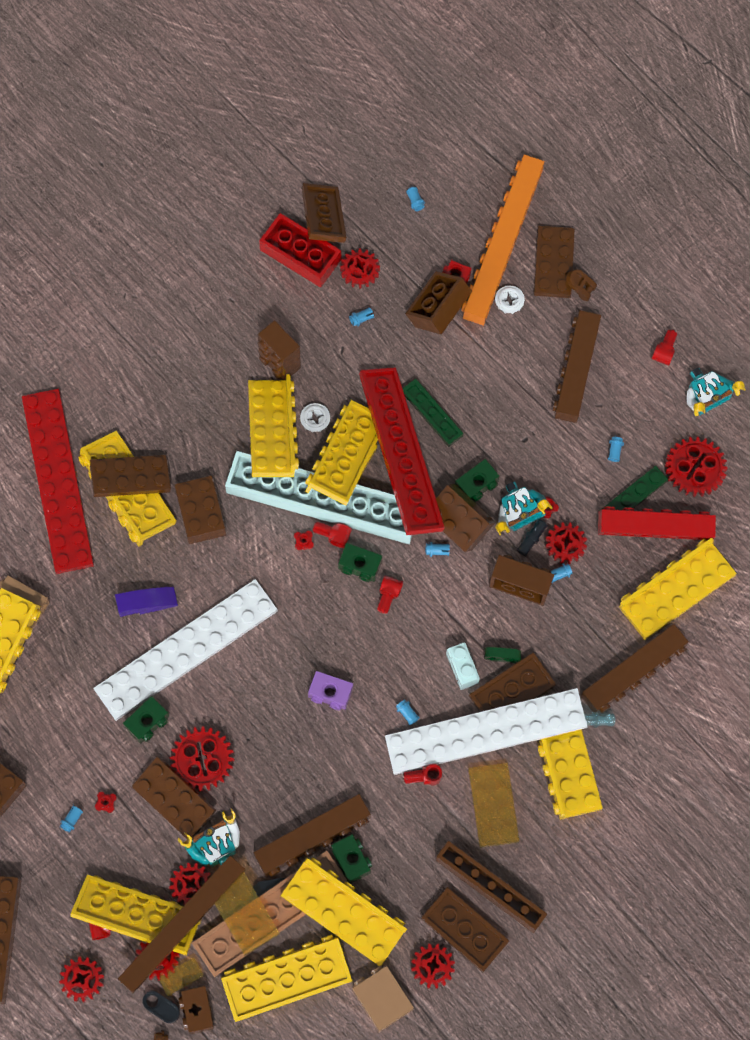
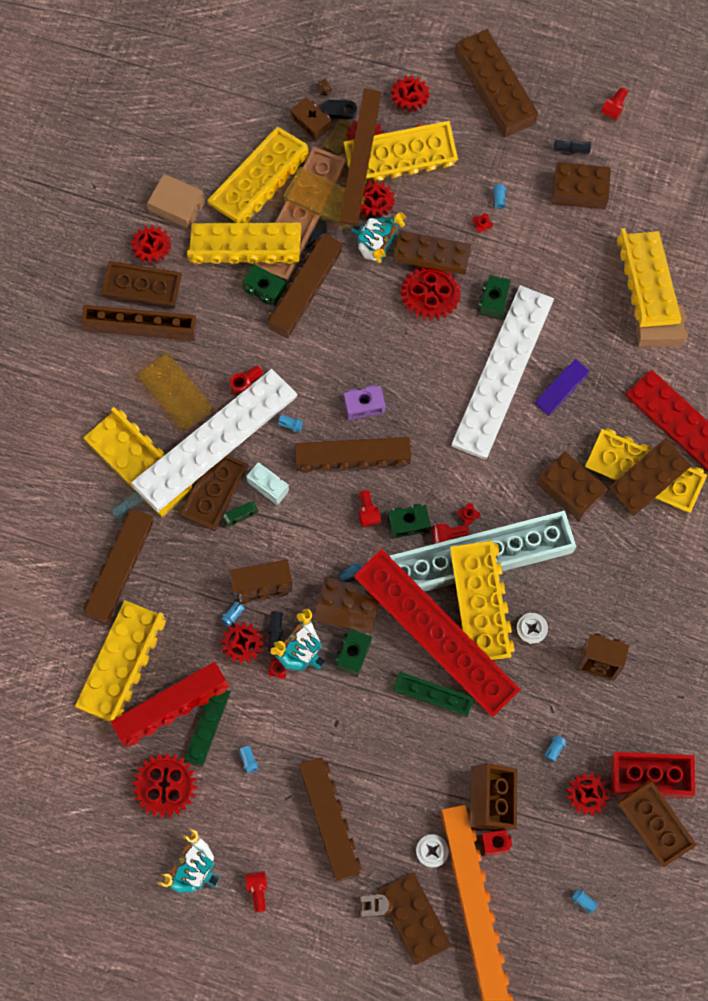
camera: 145 degrees right, 0 degrees up
(272, 428) = (561, 587): yellow bracket -> none
(371, 650) = (352, 454): none -> reddish brown brick

